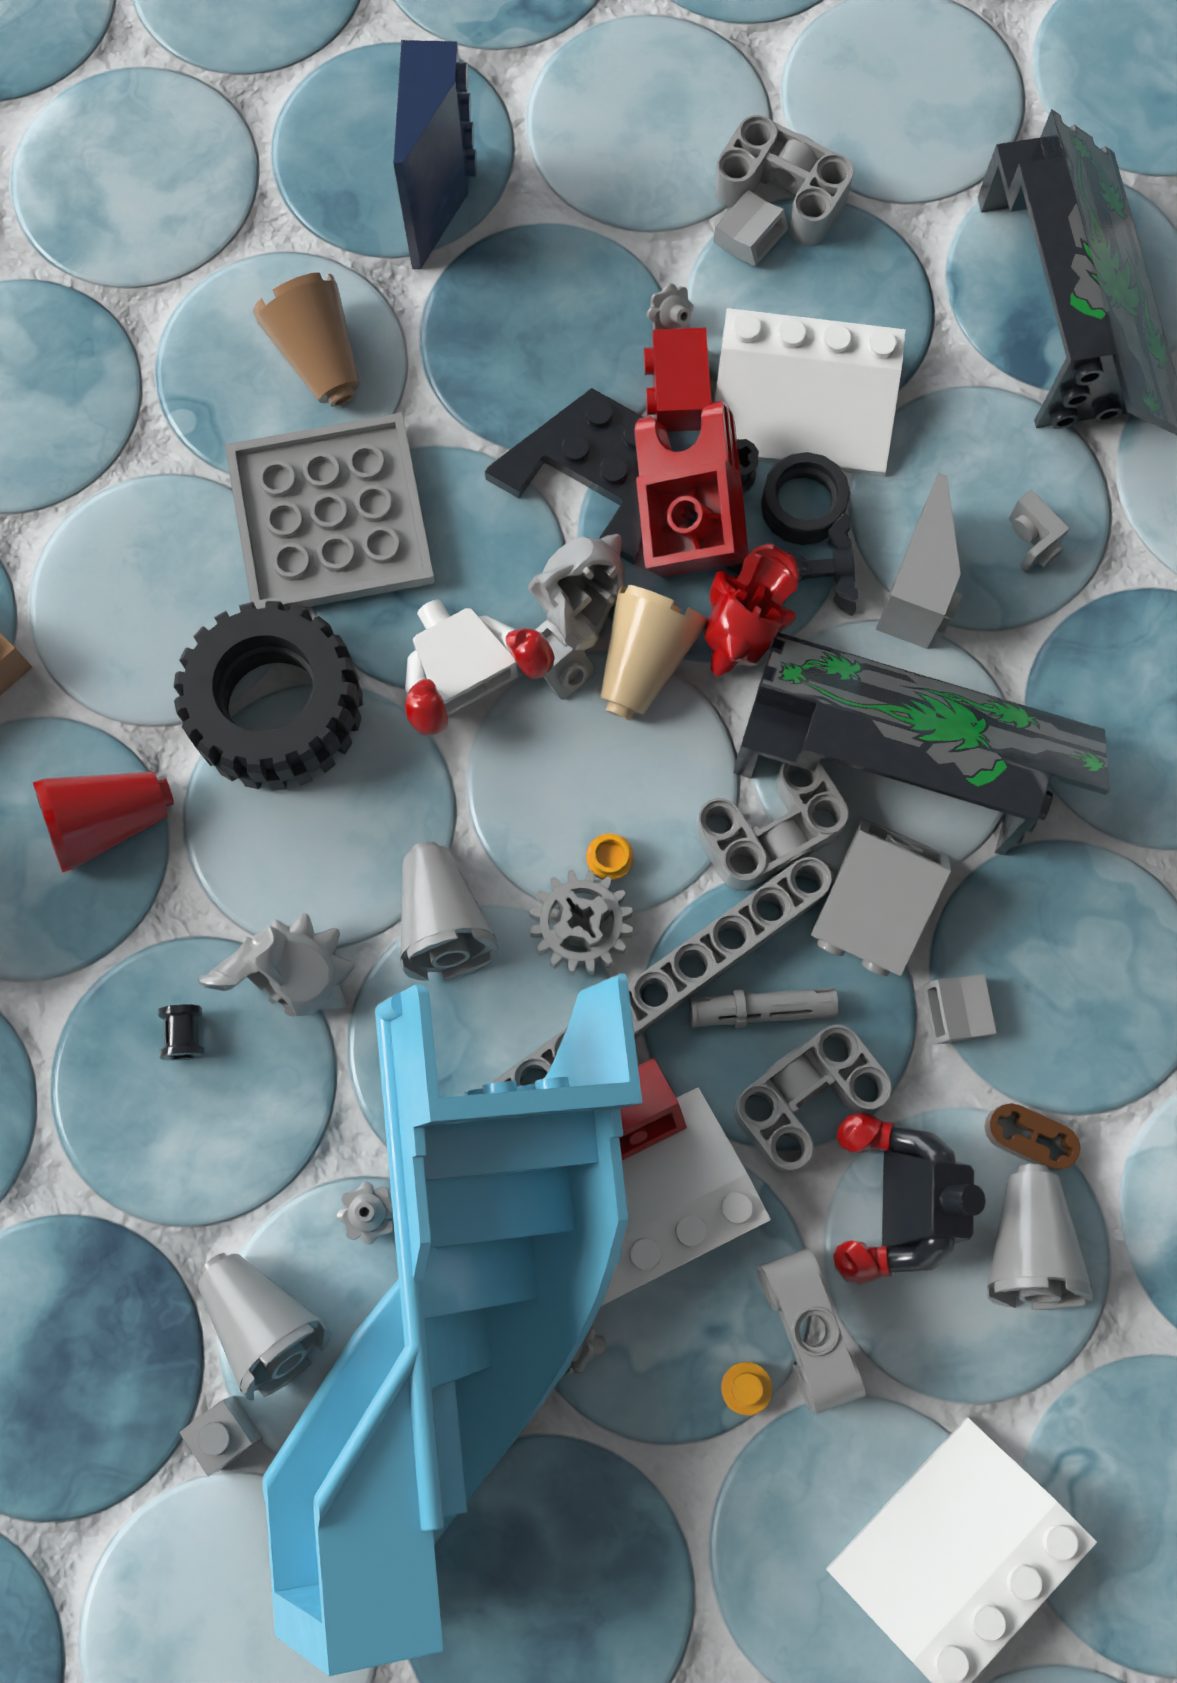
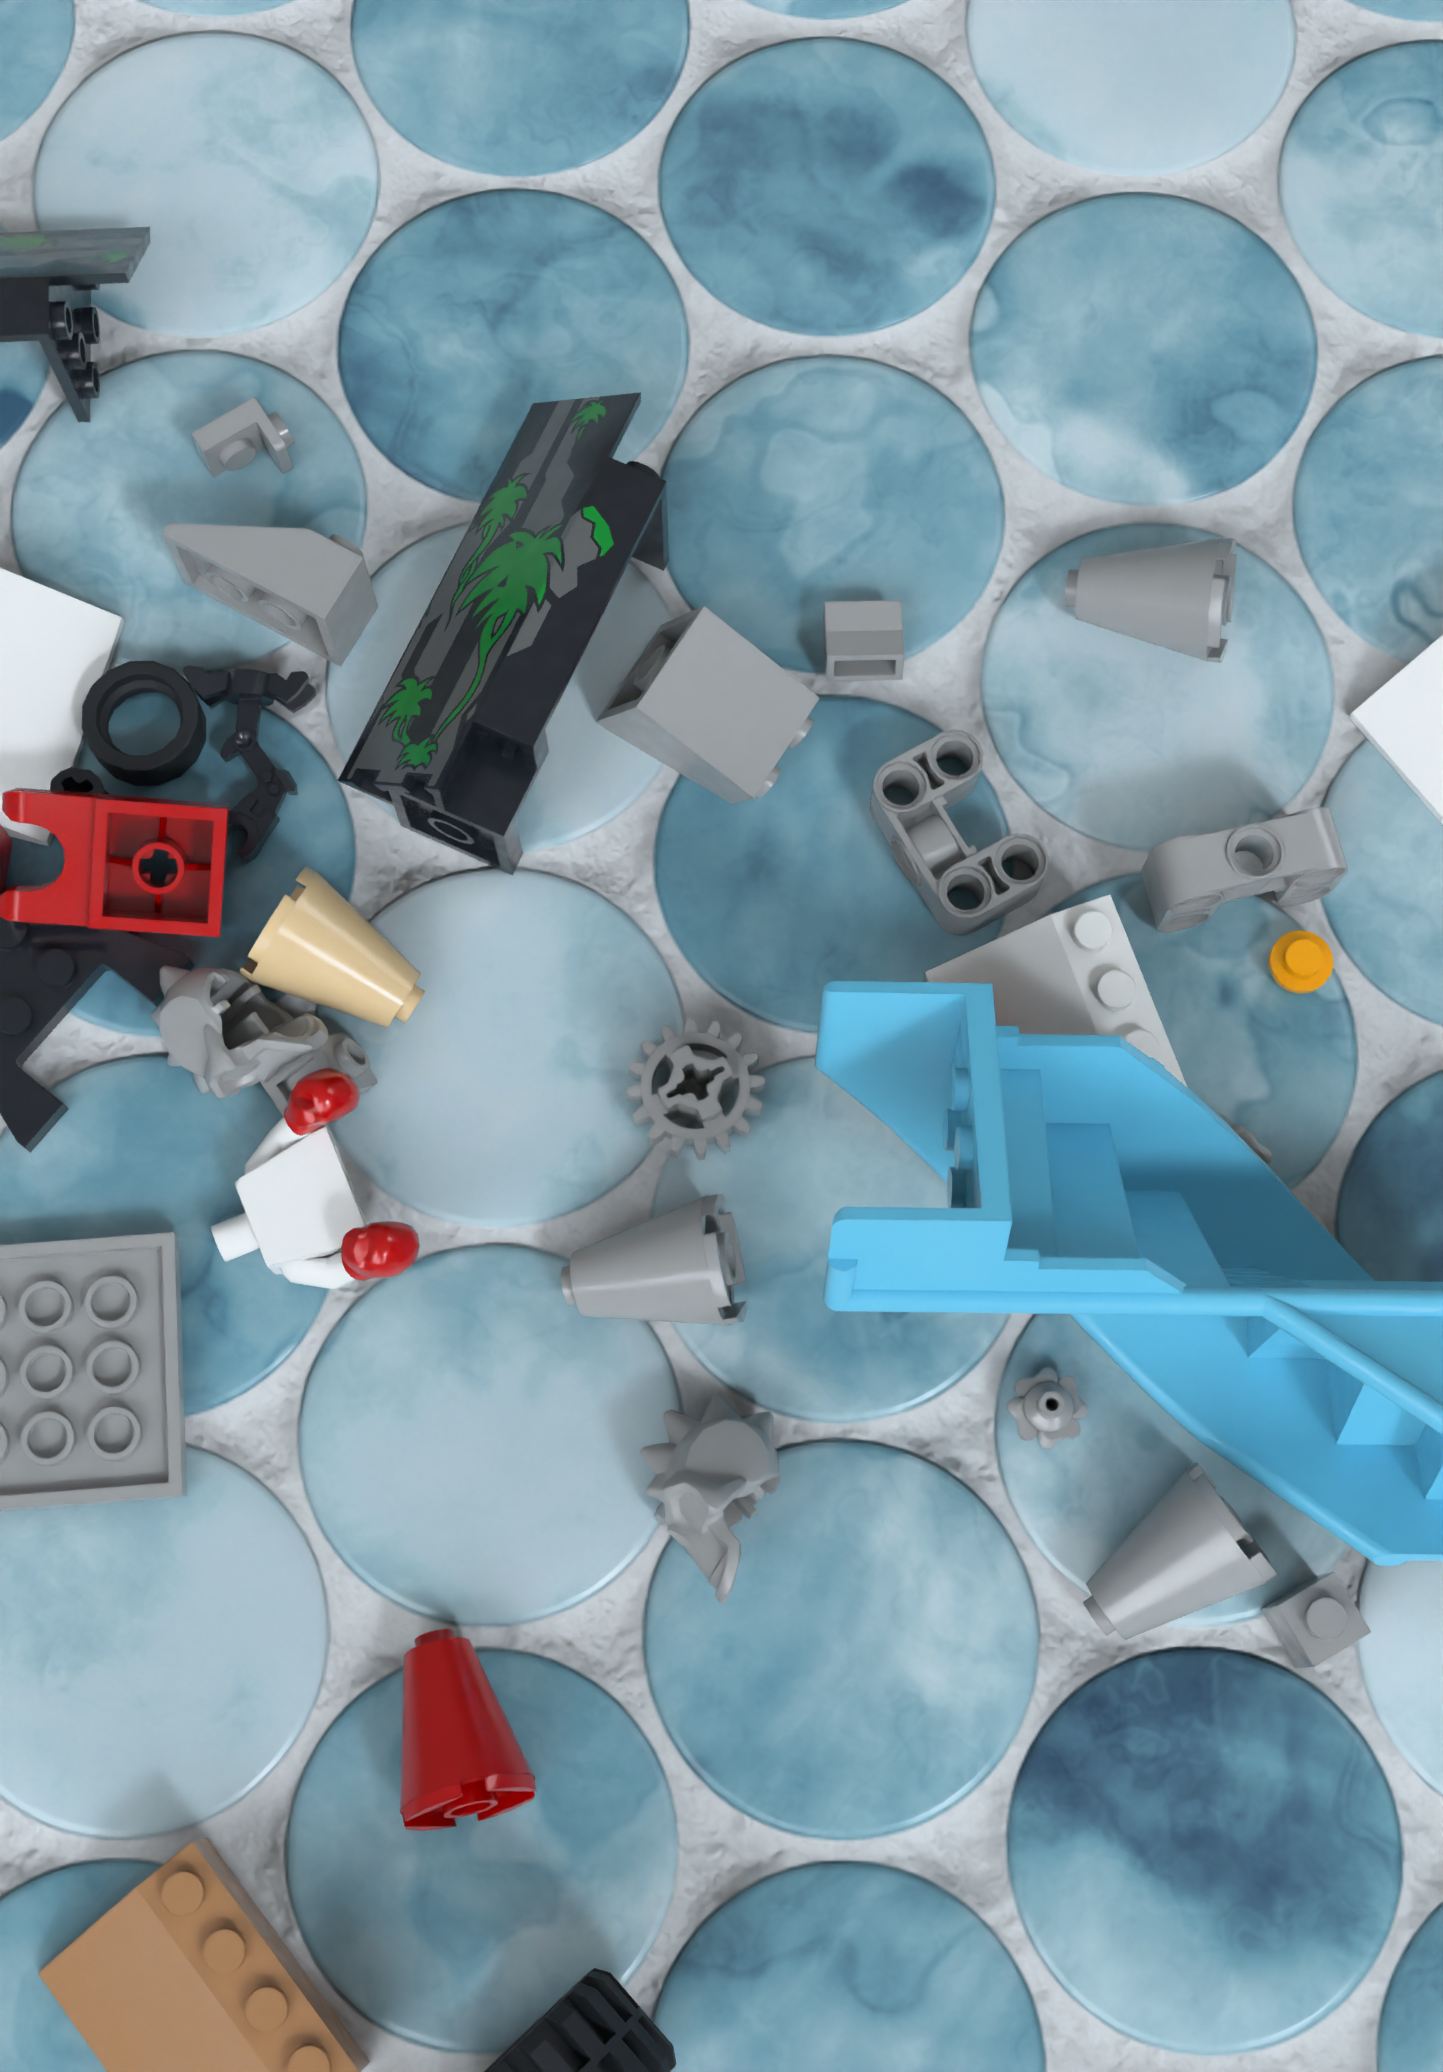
camera: 85 degrees left, 0 degrees up
(181, 1032) = (781, 1642): black bush -> none
(235, 649) = (247, 1422): black tyre -> none
(609, 856) = (608, 1044): light orange plate -> none
(707, 947) = (781, 984): light grey beam -> none
(750, 608) = (303, 813): red head -> none
(762, 1007) = (833, 896): light grey pin -> none
(779, 842) = (619, 824): light grey beam -> none
(925, 1200) = (1102, 715): black torso -> none
(1036, 1126) = (1017, 578): reddish brown beam -> none

